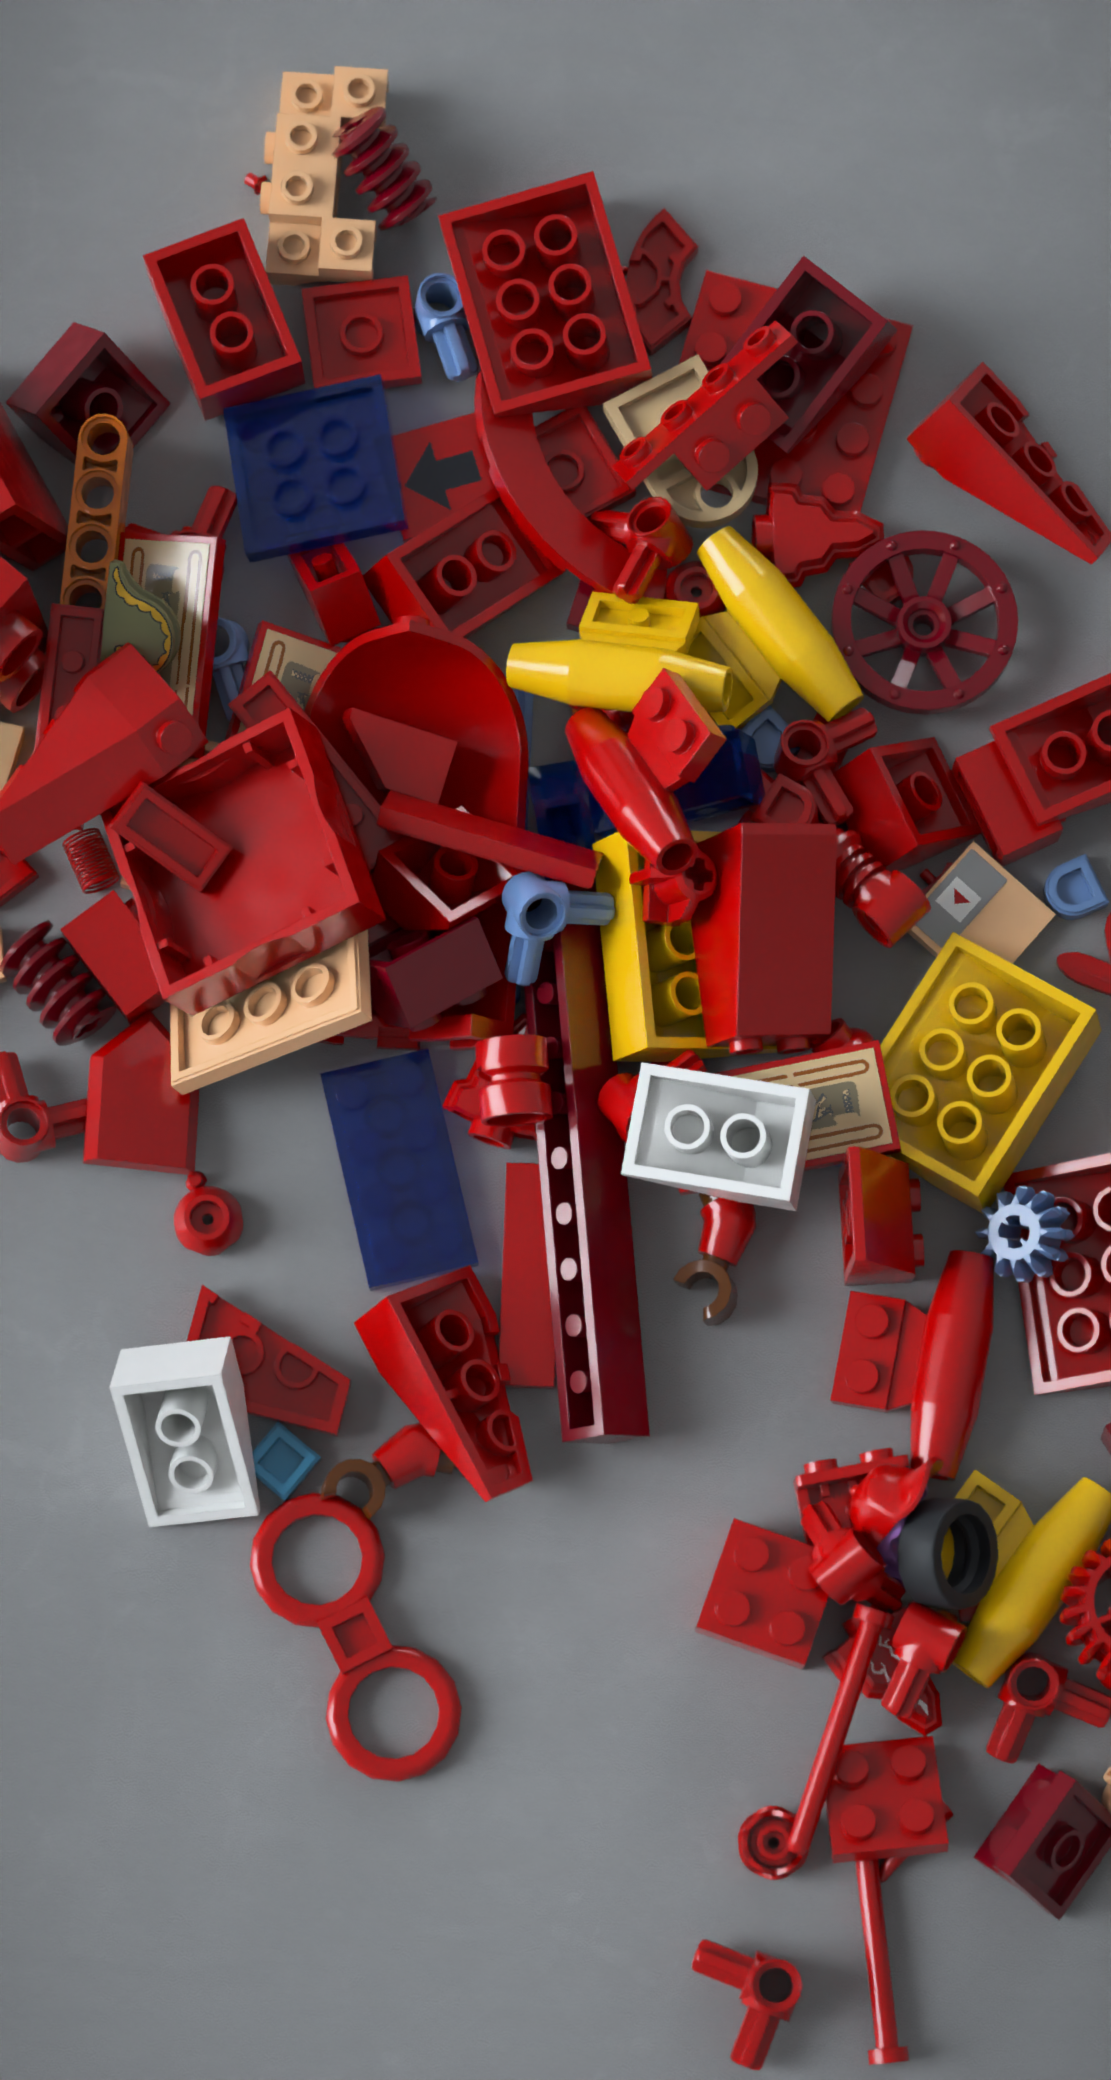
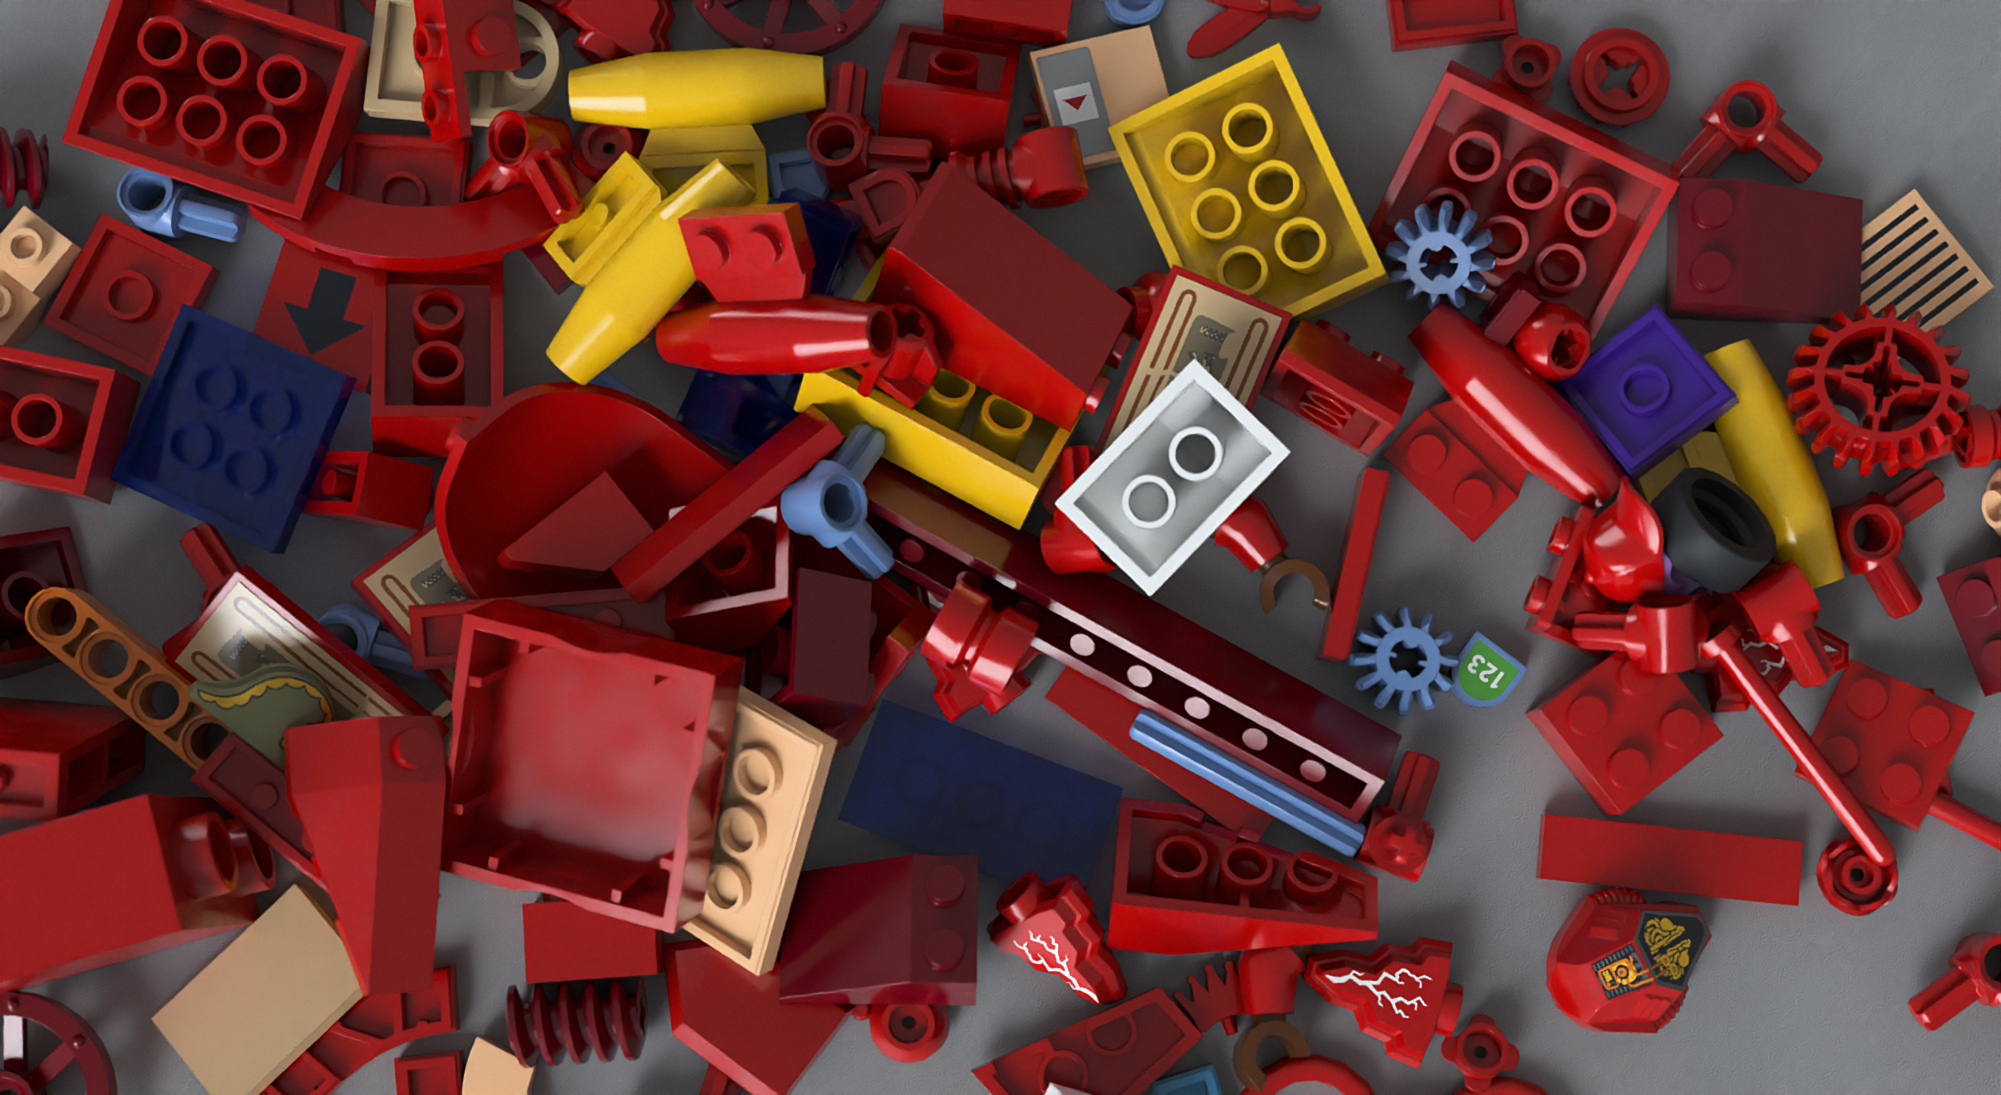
camera: 55 degrees left, 5 degrees up
(83, 867) = (477, 902): red piece -> none
(170, 836) = (510, 816): red tile -> none
(260, 1157) = (883, 933): none -> dark red slope
(340, 1283) = (1058, 935): none -> red rock
(365, 1433) = (1216, 1002): none -> red piece
(458, 1553) = (1393, 993): none -> red rock
(469, 1636) = (1484, 1034): none -> red plate
(540, 1346) = (1247, 783): none -> medium blue axle
(574, 1482) = (1396, 834): none -> red axle
(594, 1708) = (1624, 961): none -> red helmet
(692, 1697) = (1669, 859): none -> red tile
(725, 1400) = (1401, 683): none -> medium blue gear
(739, 1472) = (1484, 673): none -> tile
(752, 1322) = (1353, 565): none -> red tile
(1017, 1357) = (1553, 342): none -> red piece
(1021, 1310) = (1510, 308): none -> dark red tile
(1026, 1452) = (1647, 392): none -> dark purple tile

